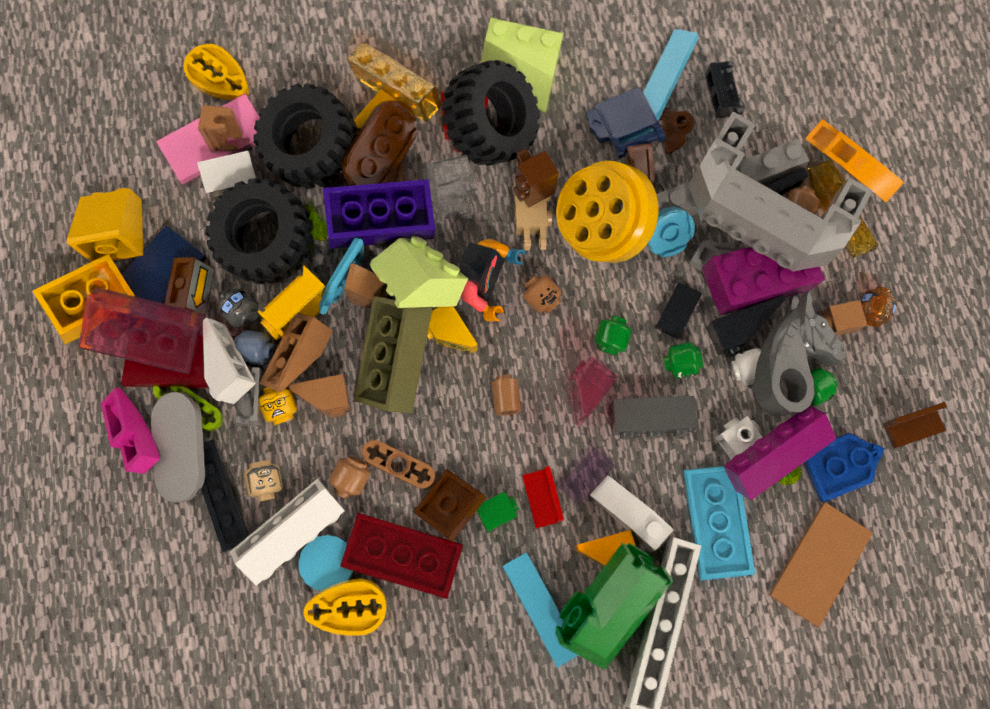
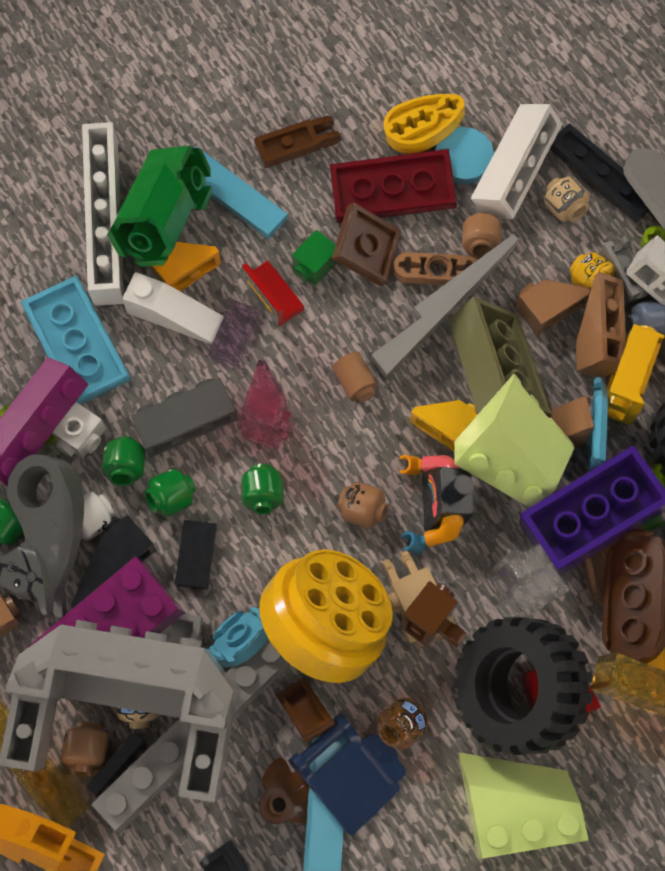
camera: 160 degrees right, 5 degrees down
(414, 423) = (437, 308): none -> light grey slope
(468, 636) = (296, 141): none -> reddish brown hinge
(578, 136) = (402, 723): none -> clear orange head
(712, 399) = (123, 461): none -> green head

